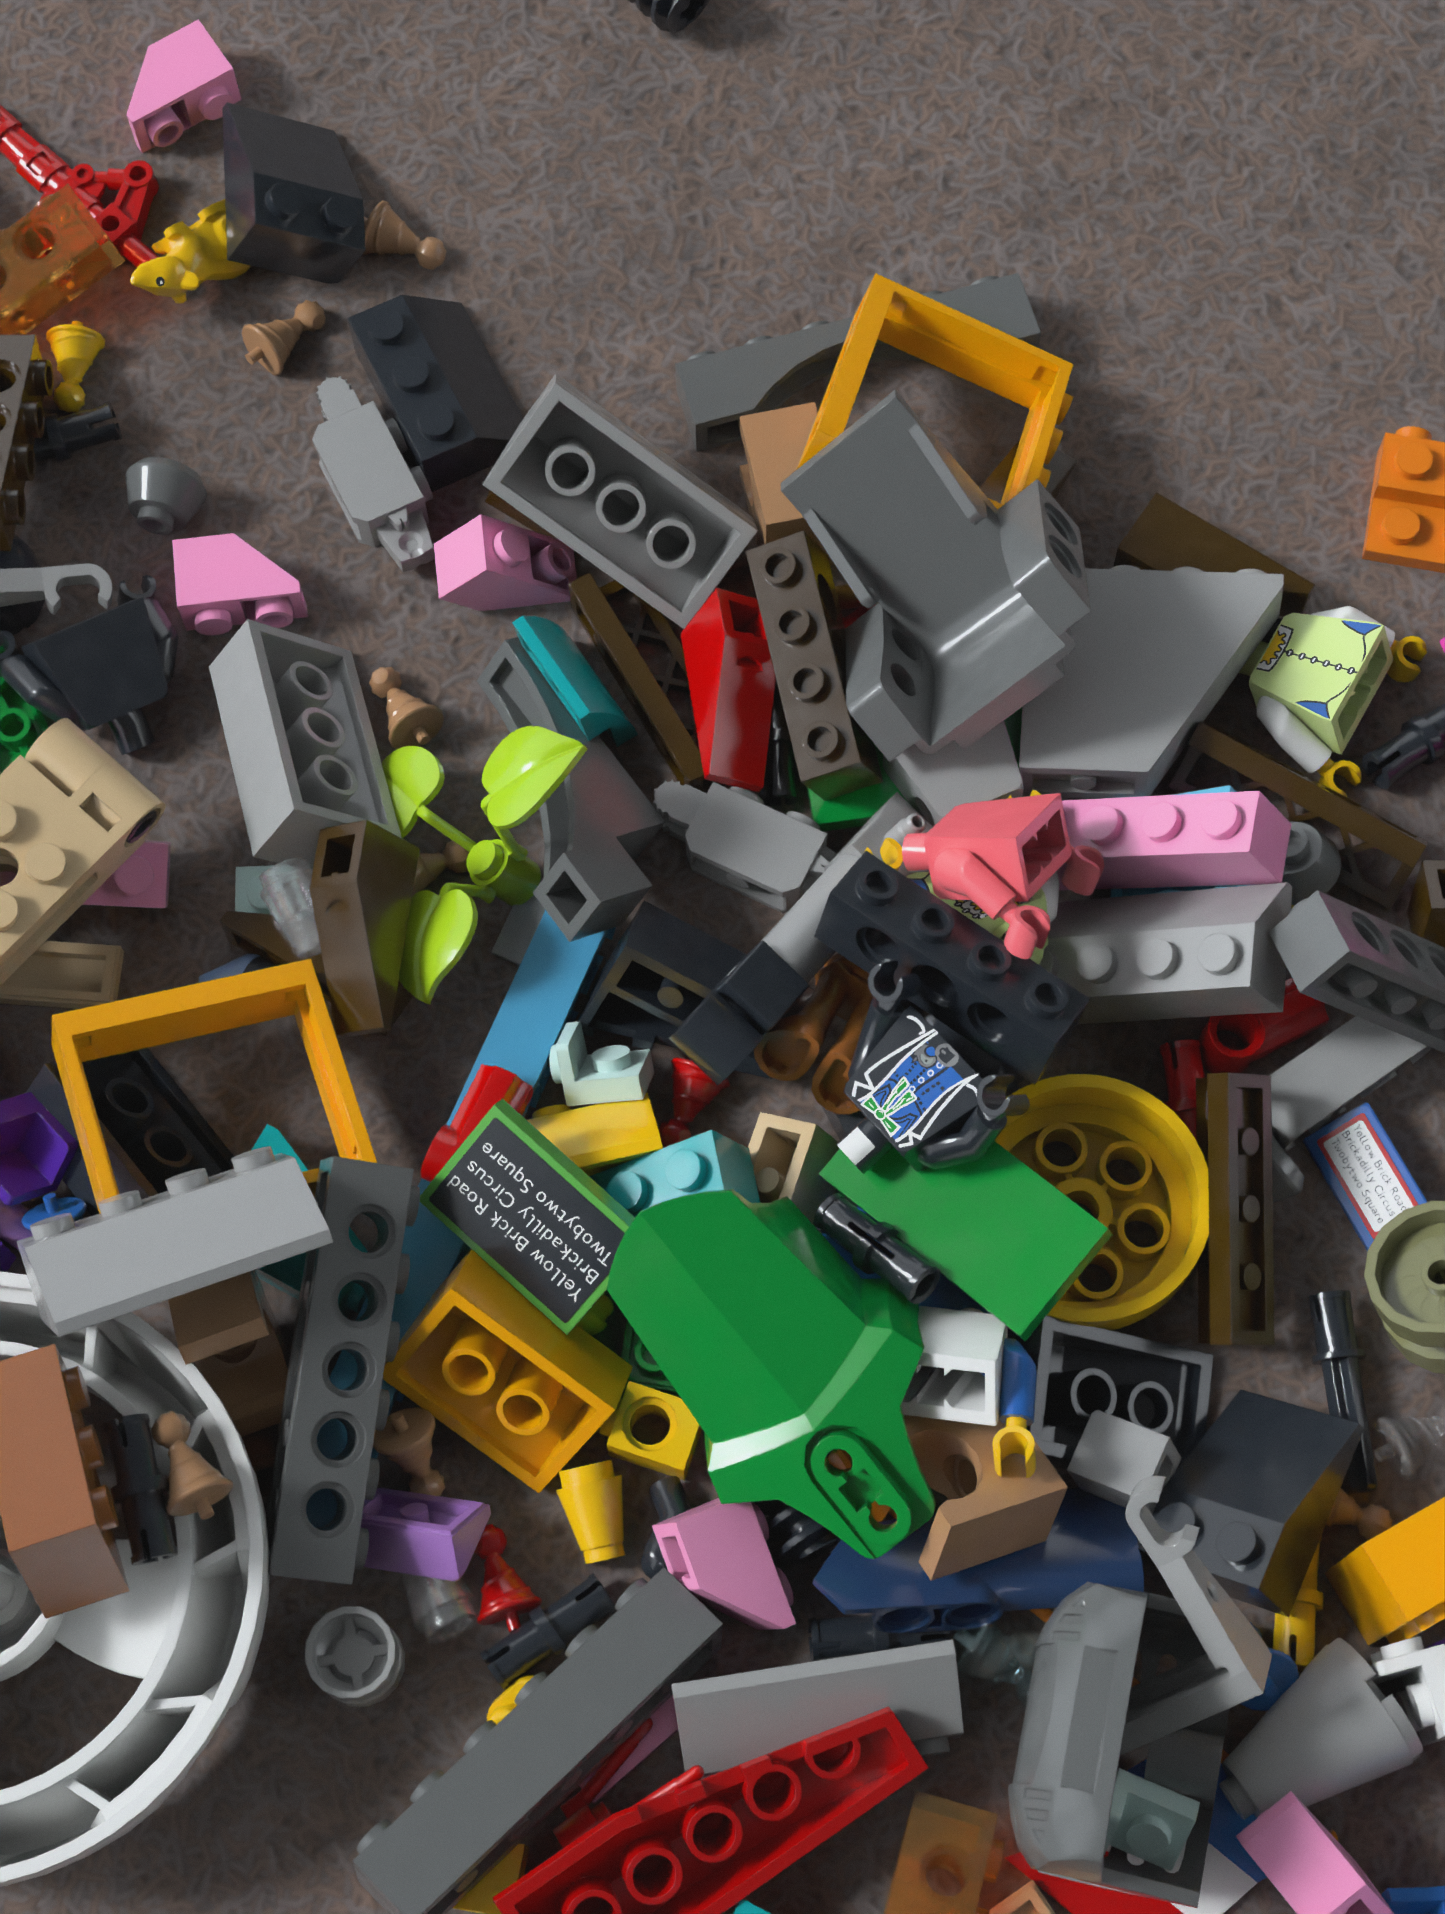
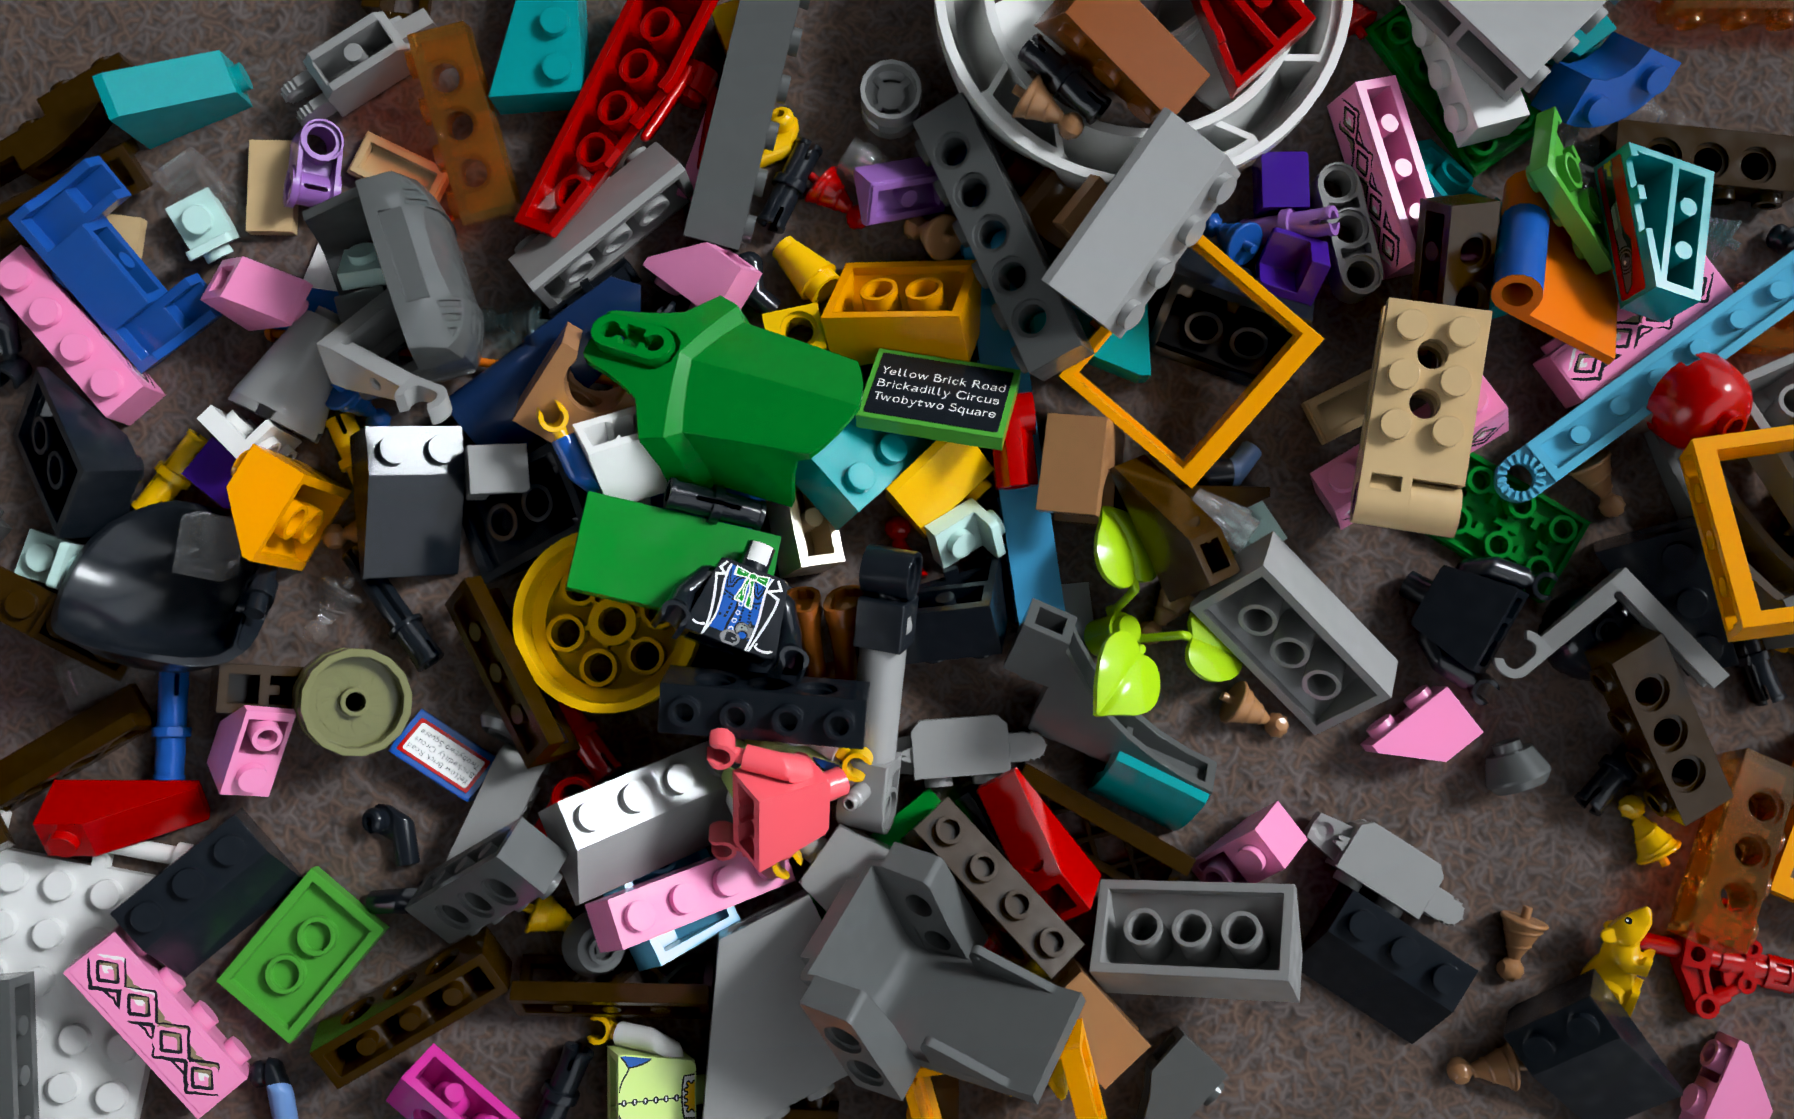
camera: 145 degrees right, 15 degrees up
(423, 1057) = (1077, 466): none -> medium nougat piece

